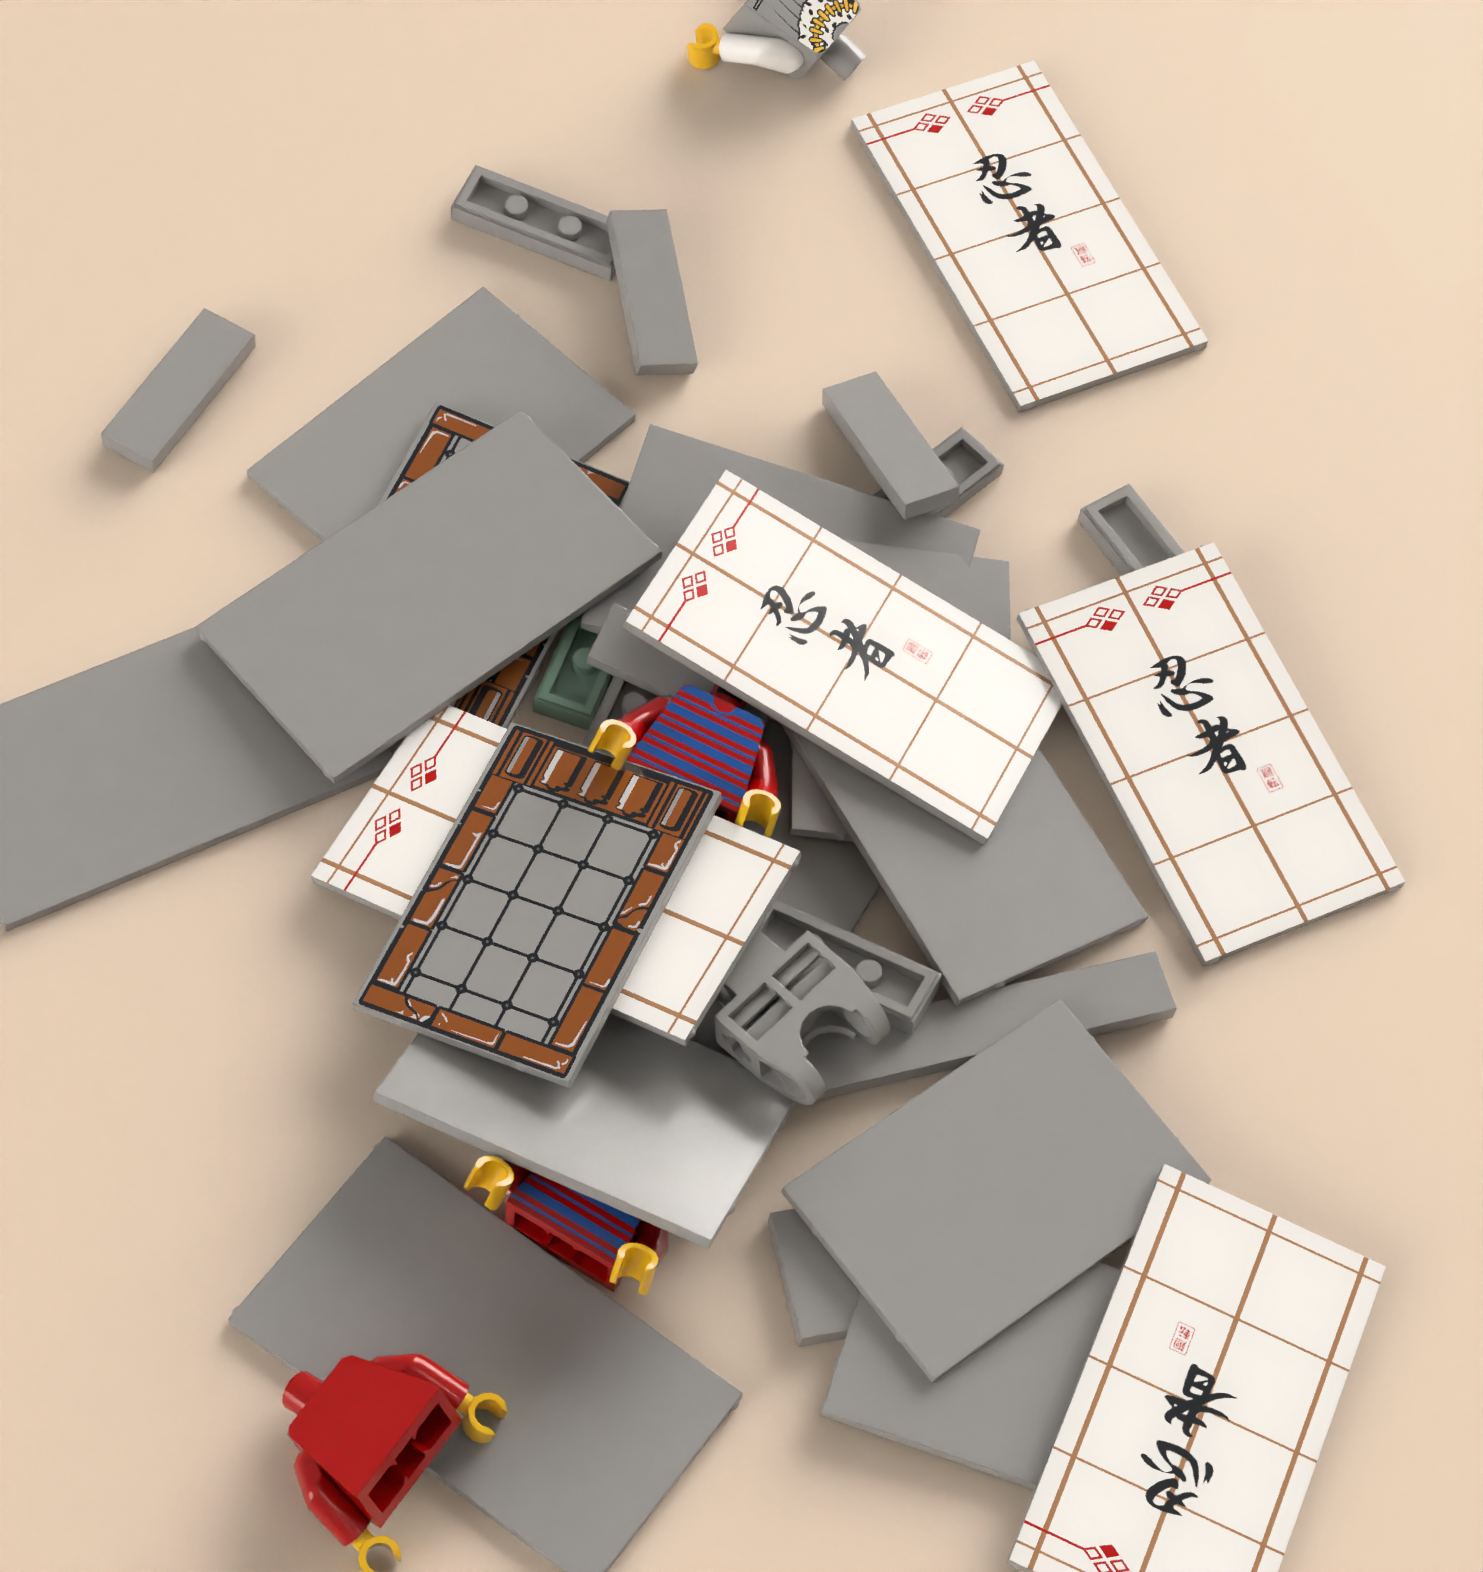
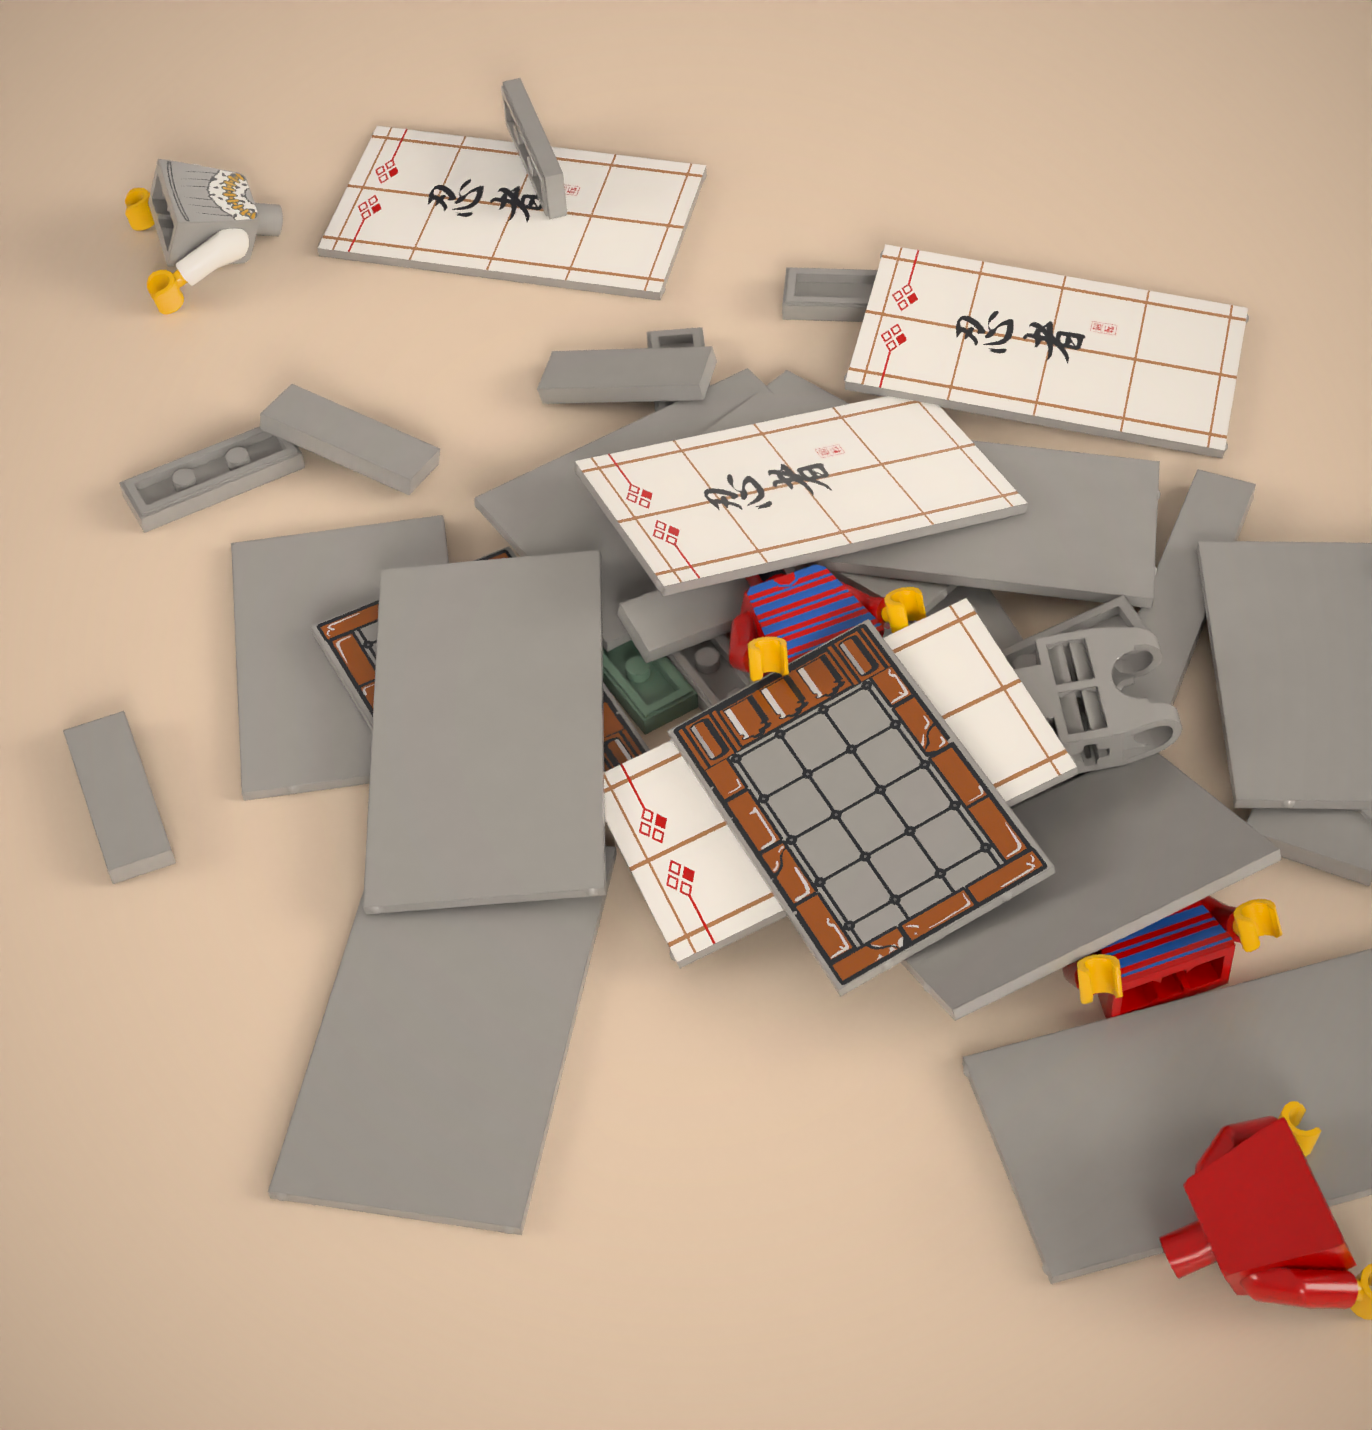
camera: 40 degrees left, 10 degrees down
(1091, 197) = (534, 148): none -> light grey tile

